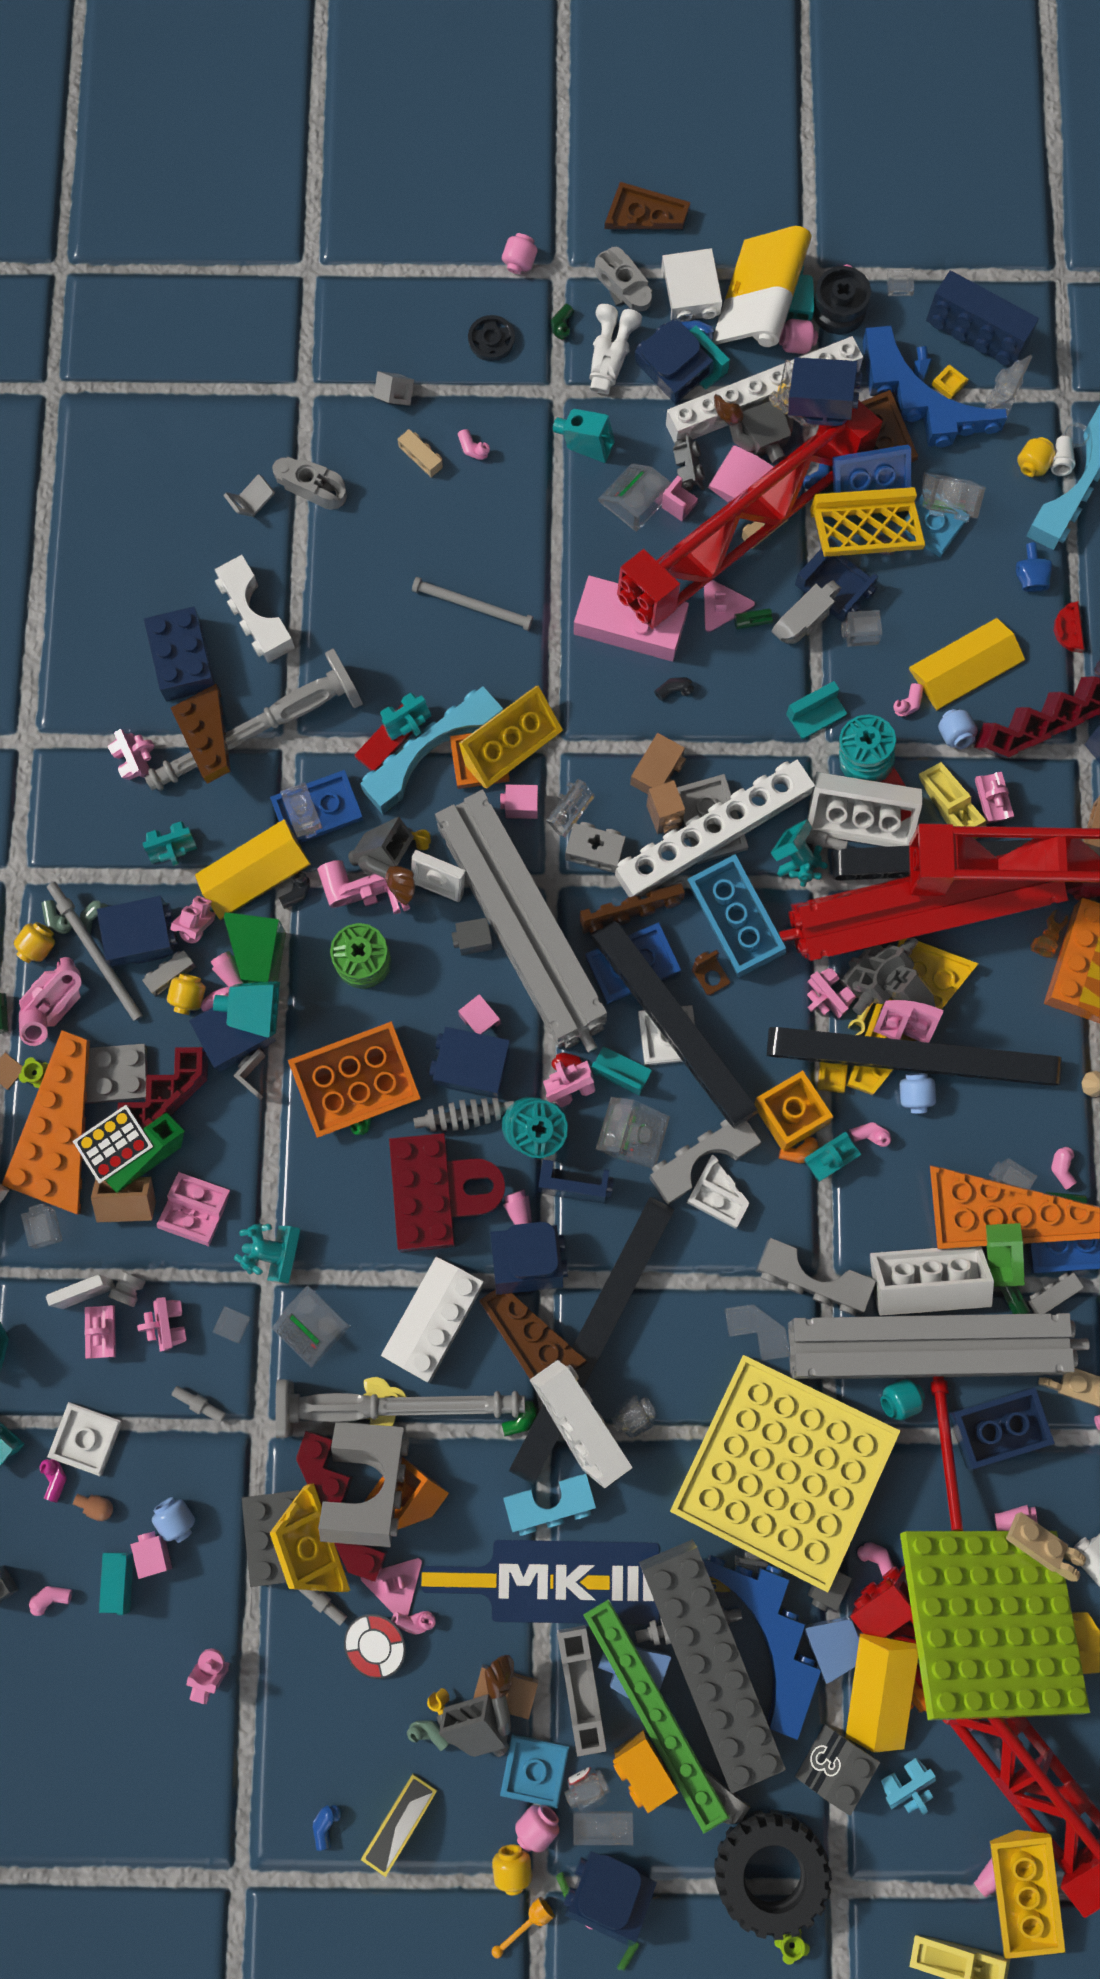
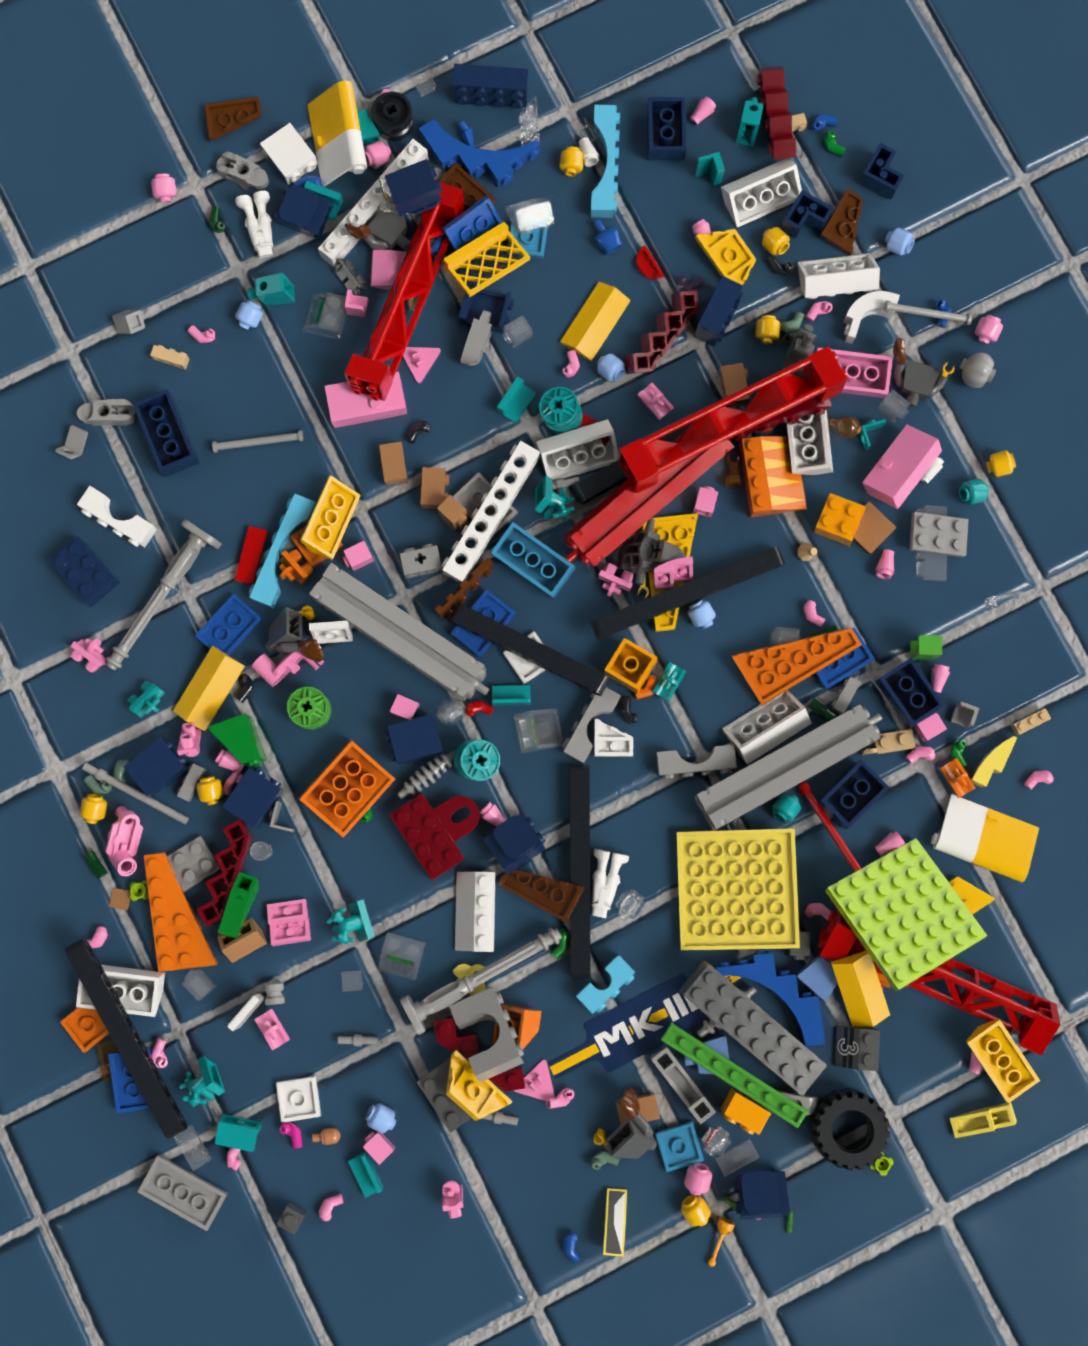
camera: 30 degrees left, 5 degrees up
(112, 1144) = (216, 909): sticker -> none
(166, 1336) = (304, 995): bright pink hips -> none
(203, 1097) = (257, 850): none -> clear wheel
(204, 732) = (129, 615): reddish brown wing -> none
(251, 1007) = (258, 778): teal torso -> none
(301, 810) = (221, 634): clear plate -> none
(366, 538) = (166, 433): none -> dark blue brick
(374, 1646) = (544, 1126): sticker -> none
(407, 717) = (256, 540): teal hips -> none
(430, 776) = (292, 570): none -> orange hips
(472, 936) = (373, 659): dark grey brick -> none
(491, 338) = (175, 254): black wheel -> none
(534, 1051) = (451, 711): none -> clear head
(542, 449) = (249, 314): none -> light blue head
(567, 1081) = (482, 719): bright pink hips -> none
(570, 807) = (392, 543): clear plate -> none
(573, 1189) = (504, 791): dark blue panel -> none
(580, 1423) = (600, 927): white wedge -> none
(613, 1374) = (605, 885): none -> white piece
(623, 711) = (393, 463): none -> medium nougat panel
(705, 963) = (528, 601): reddish brown bracket -> none
(753, 618) = (444, 360): dark green piece -> none
(757, 1164) = (626, 710): none -> black arm
(770, 1334) = (685, 809): clear tile -> none
(832, 1077) = (644, 631): yellow tile -> none
(872, 1132) = (685, 653): bright pink arm -> none
(920, 1779) = (900, 1042): medium azure hips -> none
(949, 382) = (490, 137): yellow tile -> none
(950, 797) = (630, 416): light yellow slope -> none
(995, 954) = (705, 501): none -> bright pink brick
(1005, 1254) = (804, 687): bright green panel -> none
(1044, 1547) = (913, 852): tan hinge -> none

